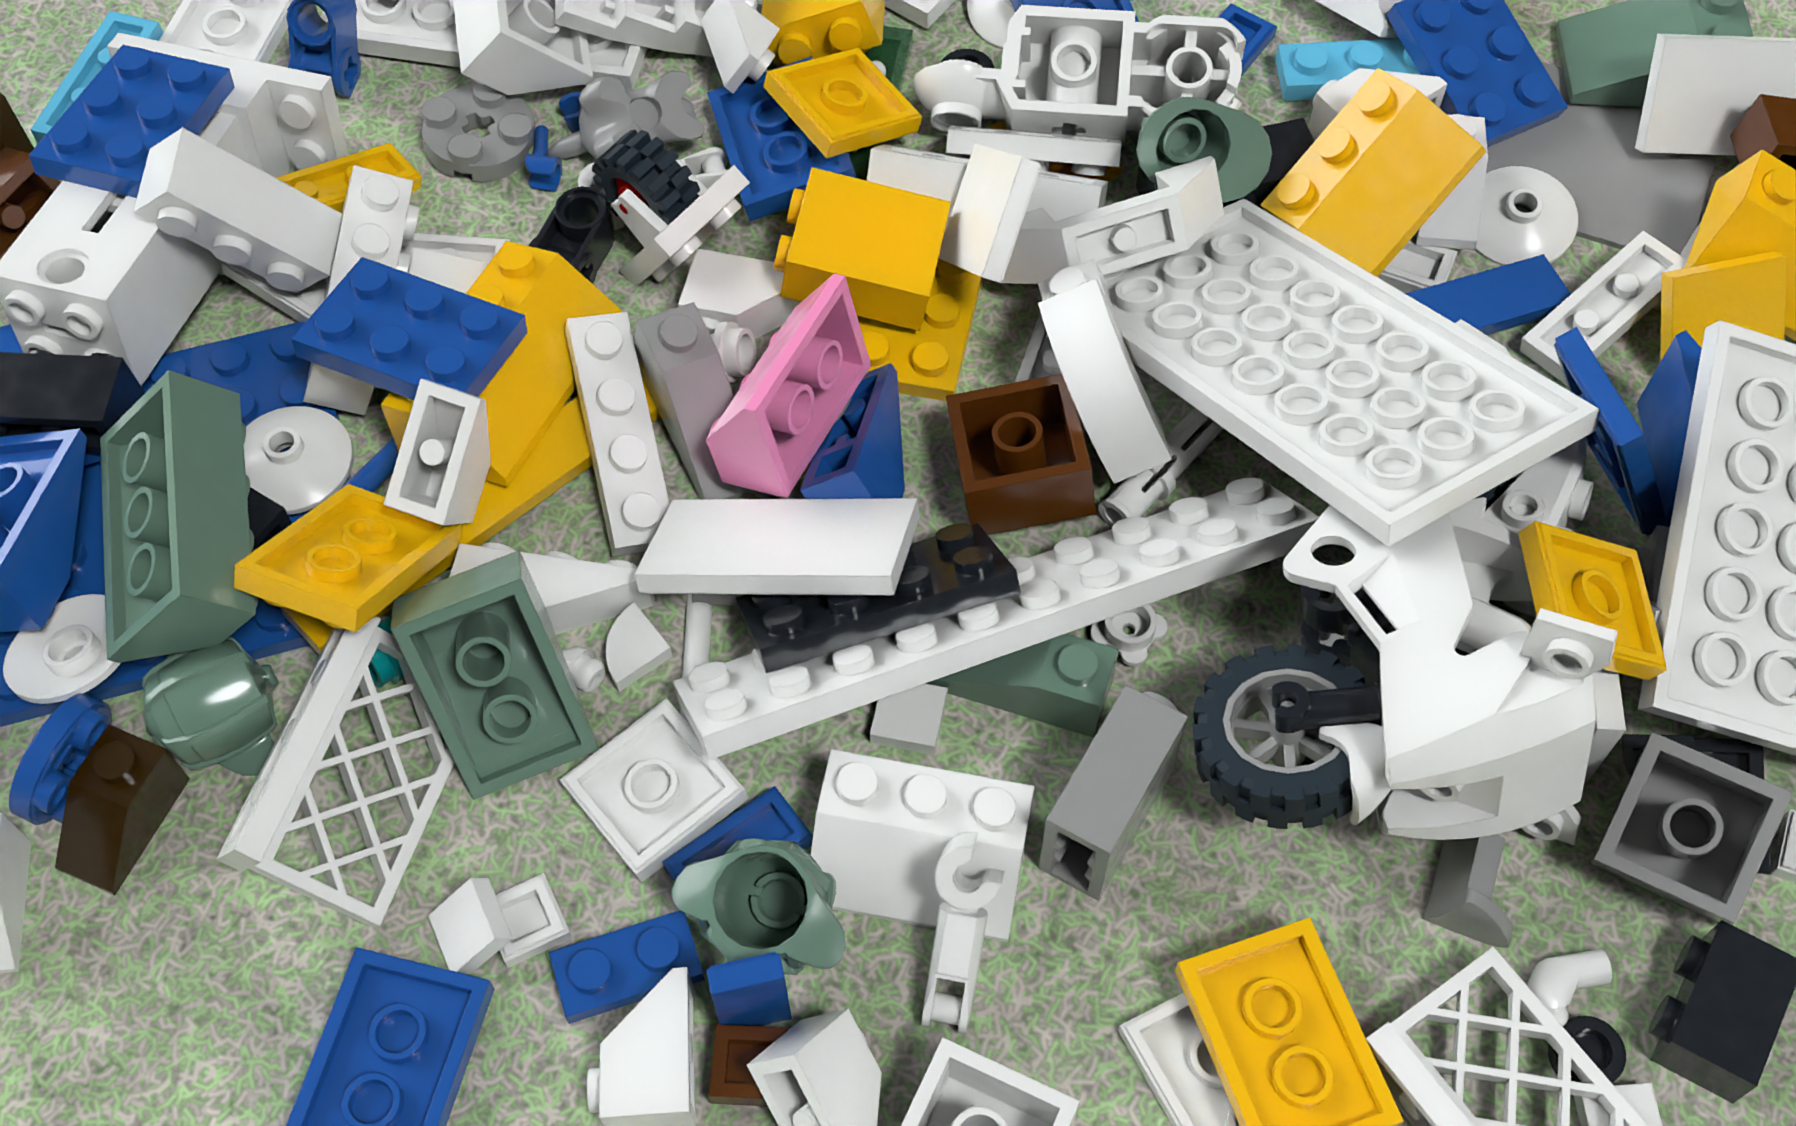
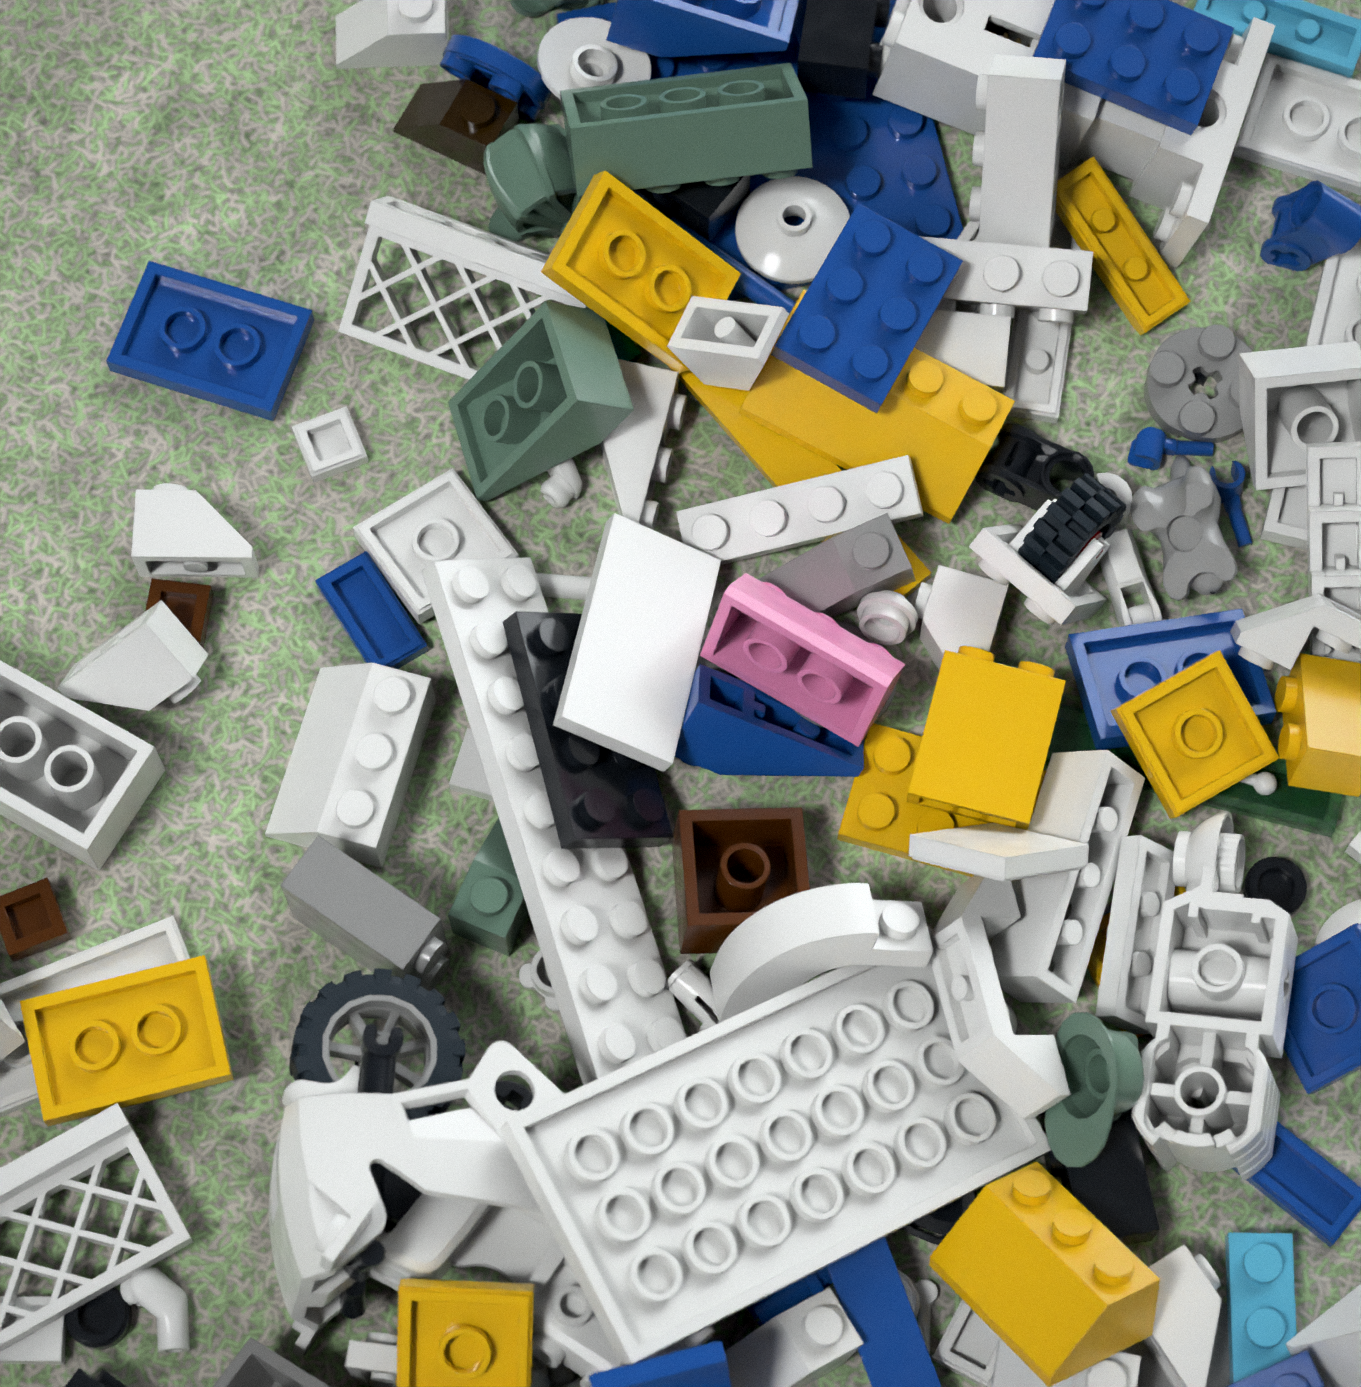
camera: 95 degrees right, 10 degrees up
(470, 926) = (323, 398): white tile -> none
(623, 965) = (279, 523): blue plate -> none
(634, 647) = (576, 530): white tile -> none
(750, 991) = (221, 604): blue tile -> none
(764, 902) = (291, 618): sand green piece -> none
(958, 932) = (272, 778): white piece -> none
(1464, 891) = (238, 1225): light grey tile -> none

